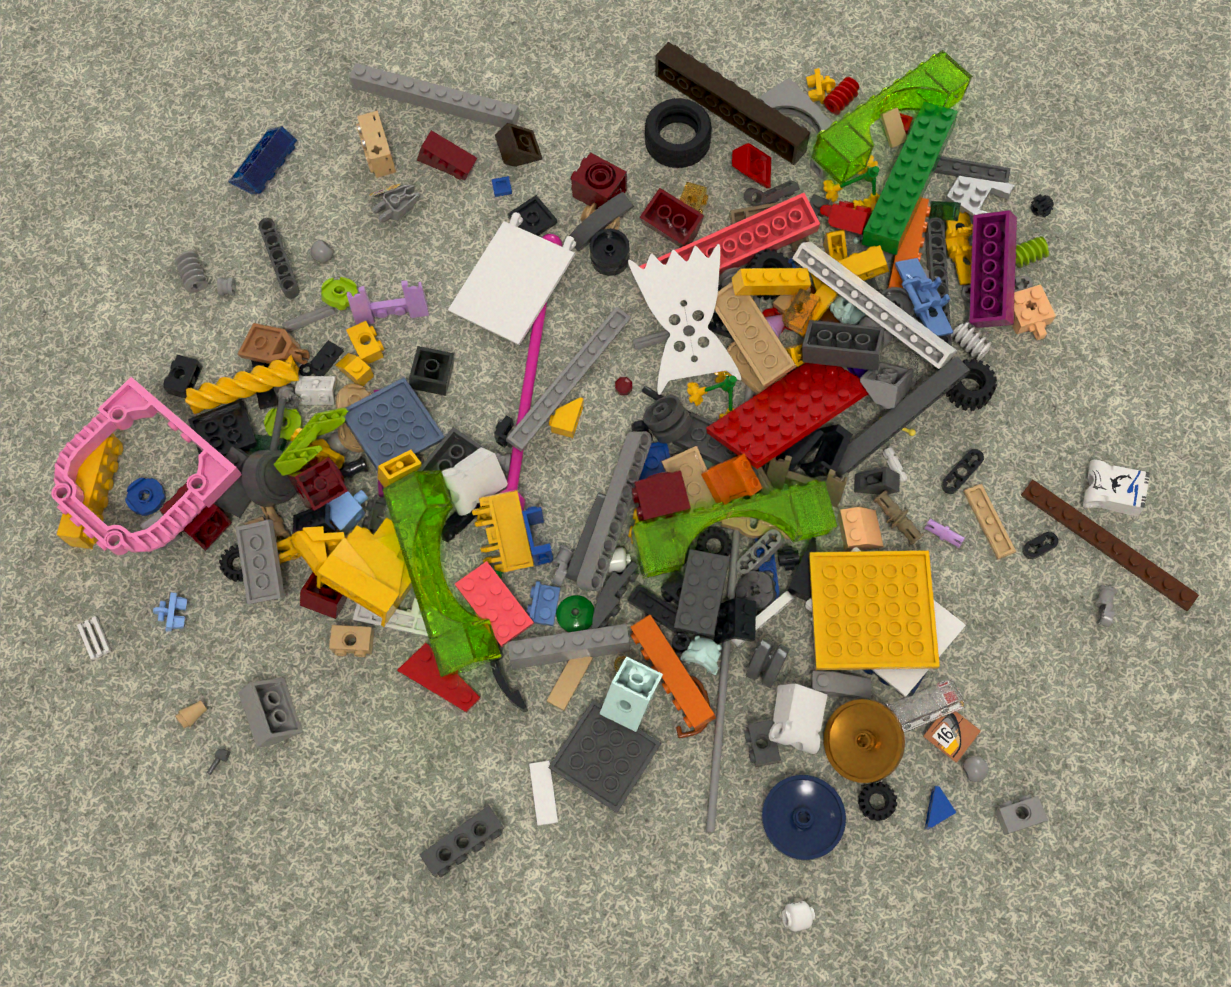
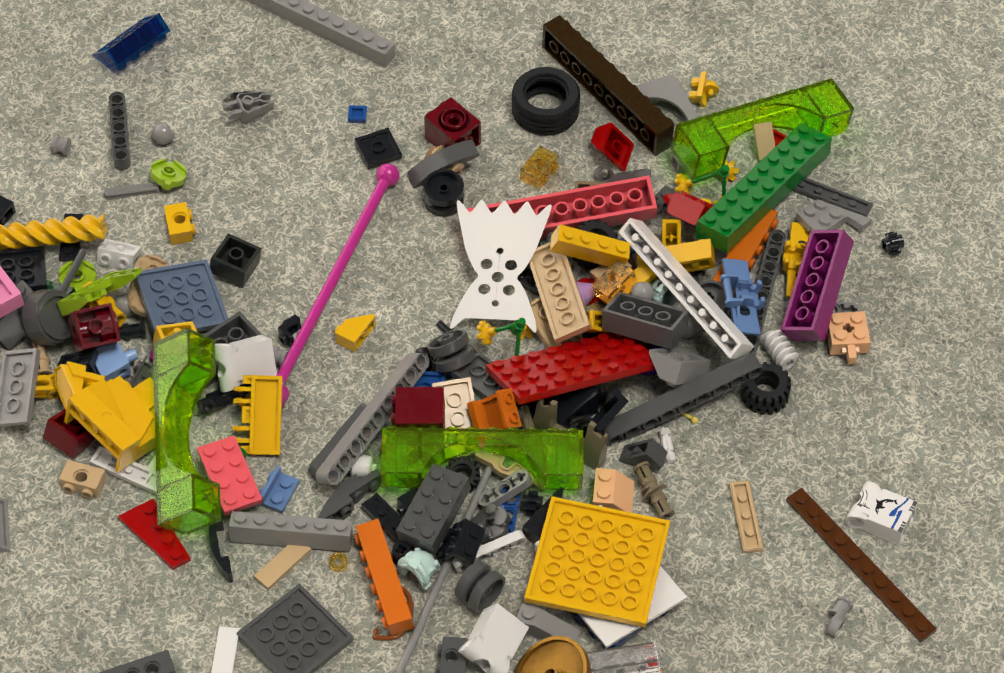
camera: 10 degrees right, 15 degrees down
(191, 272) = (31, 125): light grey piece -> none
(270, 344) = (86, 200): medium nougat plate -> none
(288, 392) = (92, 255): light grey connector -> none
(323, 360) = (133, 230): black hinge -> none
(355, 369) = (162, 244): yellow slope -> none
(375, 144) = (245, 49): tan piece -> none
(414, 303) = (237, 196): lavender wedge -> none
(446, 156) = (310, 74): dark red wedge -> none
(512, 281) = (340, 198): white flag -> none
(517, 145) = (384, 80): dark brown slope -> none
(543, 553) = (290, 439): blue panel -> none
(561, 563) = (306, 458): light grey connector -> none
(568, 379) = (366, 295): light grey plate -> none
(572, 622) = (297, 508): green dish -> none
(623, 386) = (419, 316): dark red tile -> none
(631, 694) = (335, 580): light aqua brick -> none
(658, 337) = (466, 280): light grey axle -> none
(672, 218) = (513, 174): dark red slope -> none
(831, 314) = (643, 290): none -> light grey piece
(841, 95) = (722, 100): red piece -> none
(944, 533) = (696, 516): lavender pin -> none
(945, 210) = (790, 225): clear green tile -> none
(963, 479) = (735, 458): black beam -> none
(1030, 251) = (864, 281): lime piece -> none
(1038, 542) = (790, 549): black beam -> none

